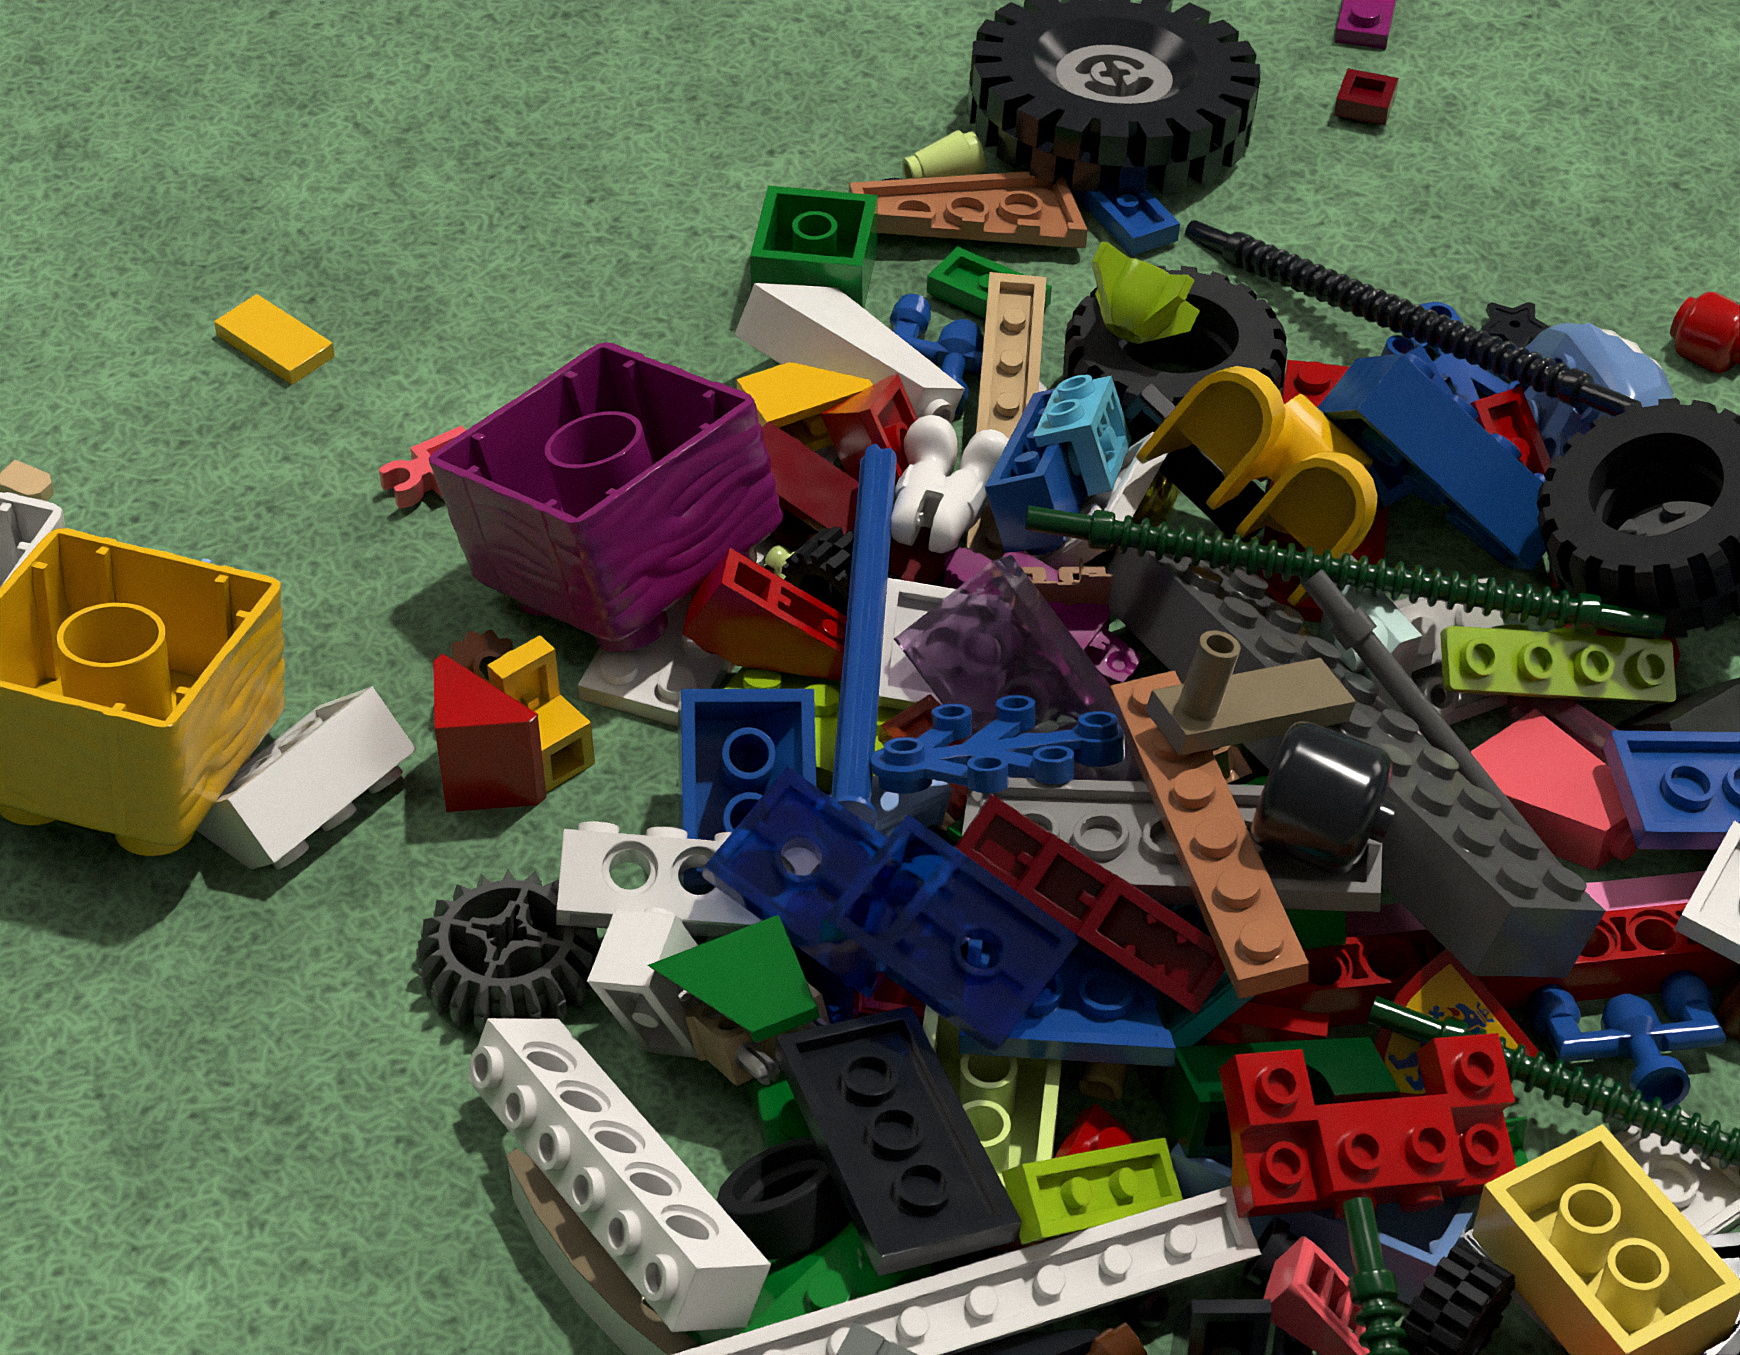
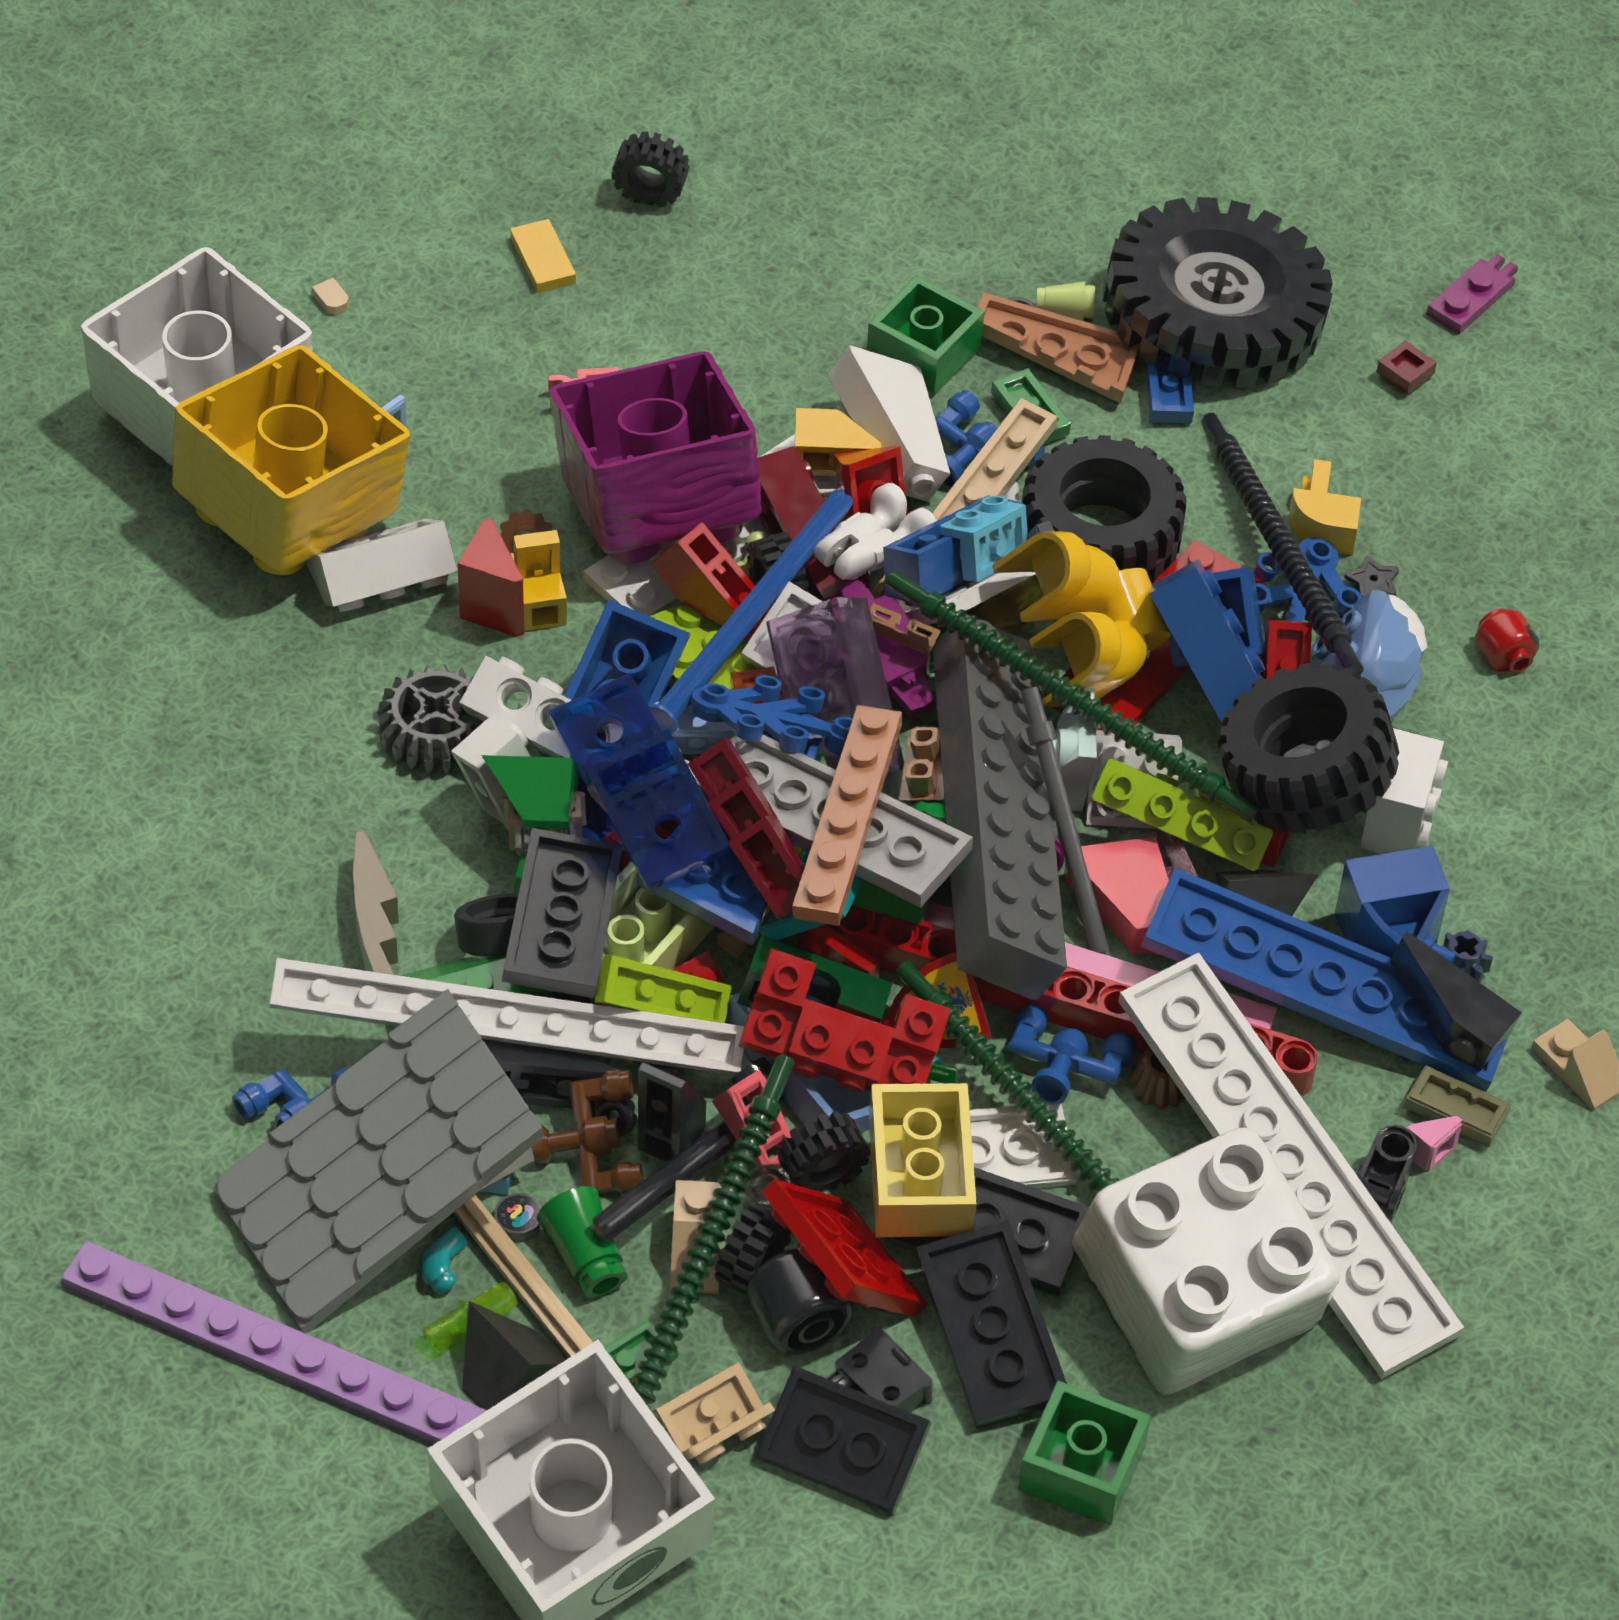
camera: 25 degrees right, 5 degrees up
(351, 167) = (654, 154): none -> black tyre
(618, 1175) = (405, 865): white brick -> none
(1140, 298) = (1079, 460): lime piece -> none
(1232, 709) = (922, 751): dark tan piece -> none
(1324, 799) = (914, 823): black head -> none
(1413, 273) = (1324, 514): none -> yellow brick

